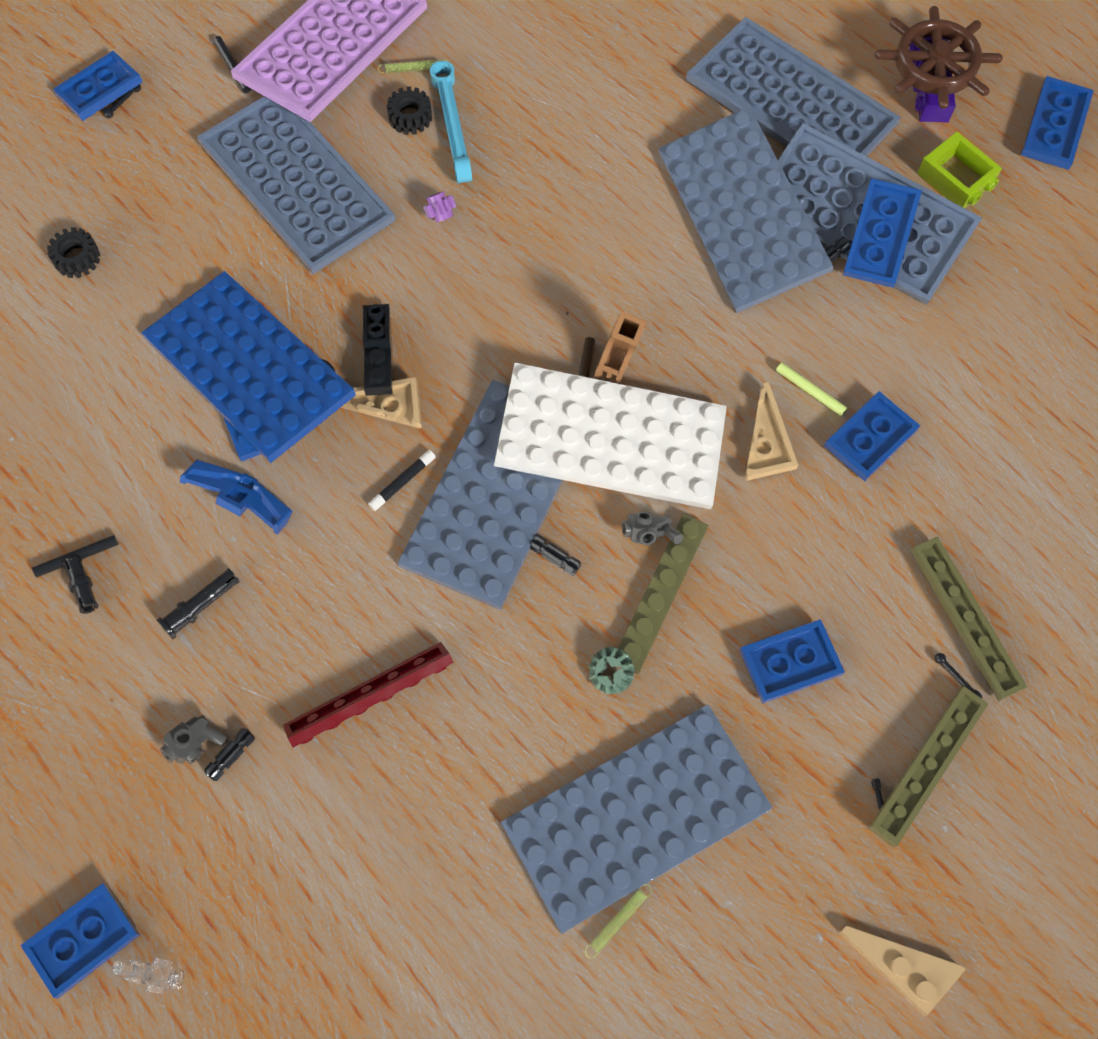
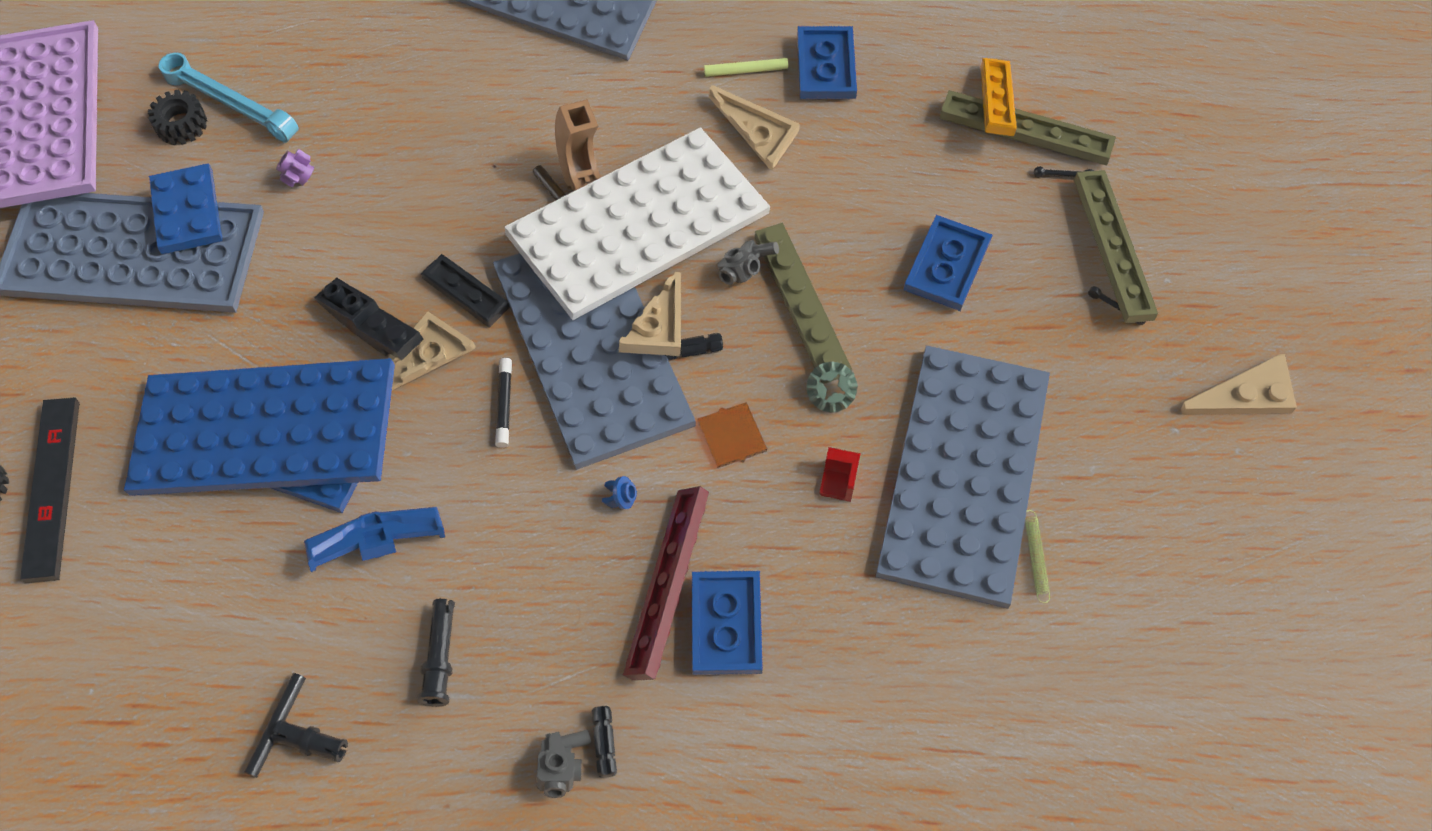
camera: 45 degrees left, 5 degrees down
(108, 295) = (50, 491): none -> black tile
(348, 178) = (185, 208): none -> blue plate
(375, 756) = (726, 623): none -> blue plate
(404, 610) = (623, 493): none -> blue plate
(409, 64) = (150, 72): yellowish green piece -> none
(458, 383) = (465, 290): none -> black tile
(516, 639) = (732, 435): none -> clear orange piece
(541, 522) = (660, 324): none -> tan wing
(550, 734) = (839, 474): none -> red panel
(967, 575) = (998, 97): none -> light orange tile

